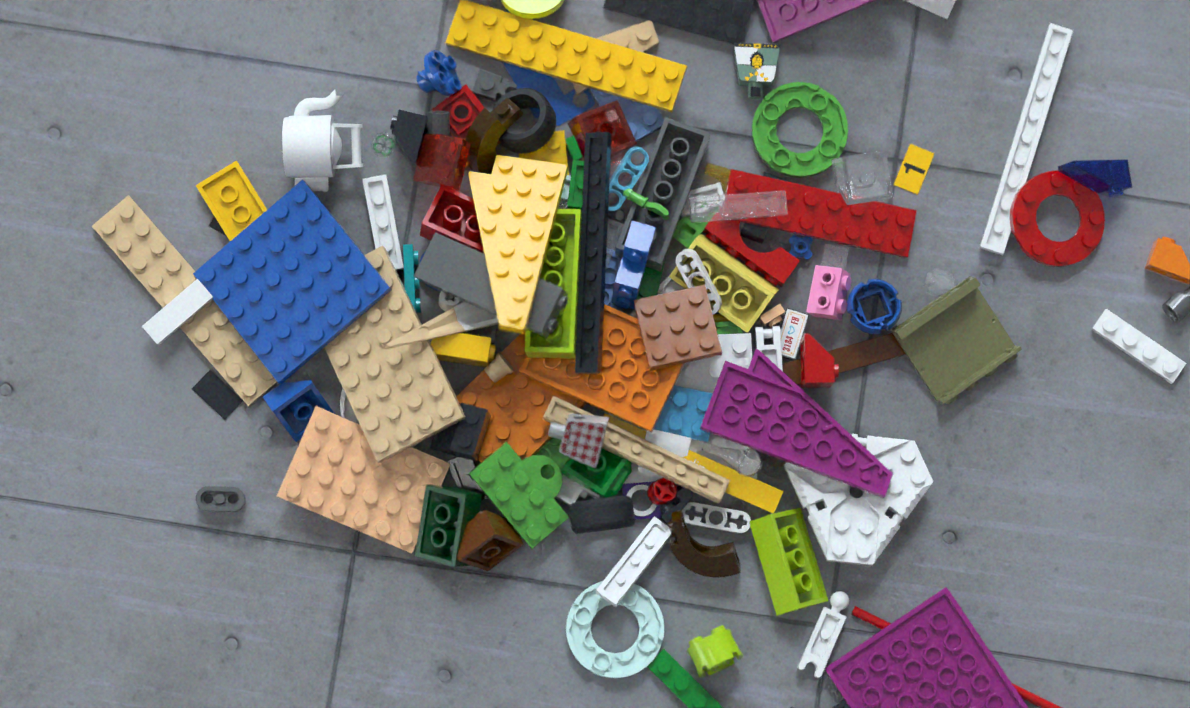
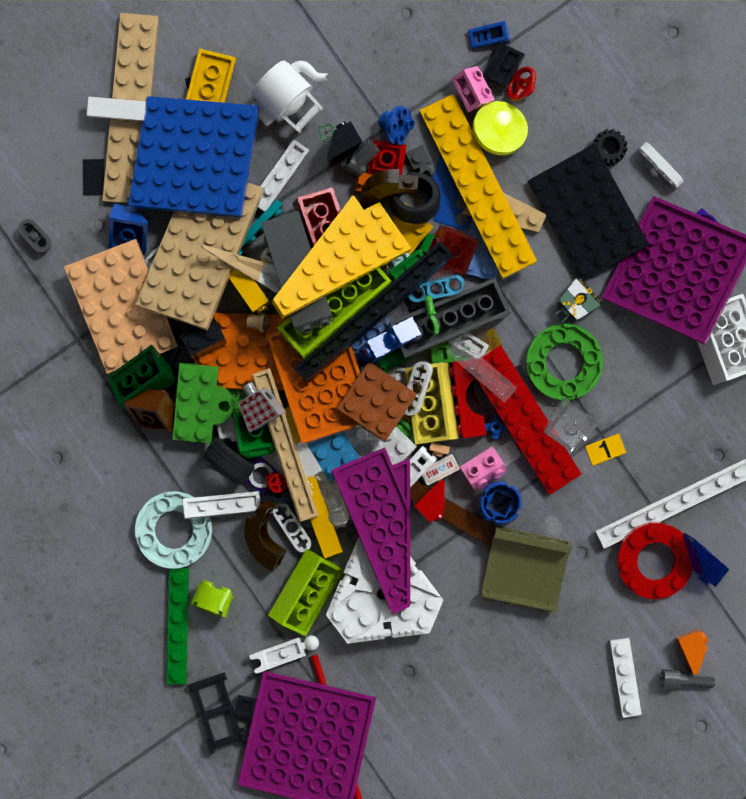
camera: 55 degrees right, 5 degrees up
(442, 161) = (344, 175): clear red slope -> none

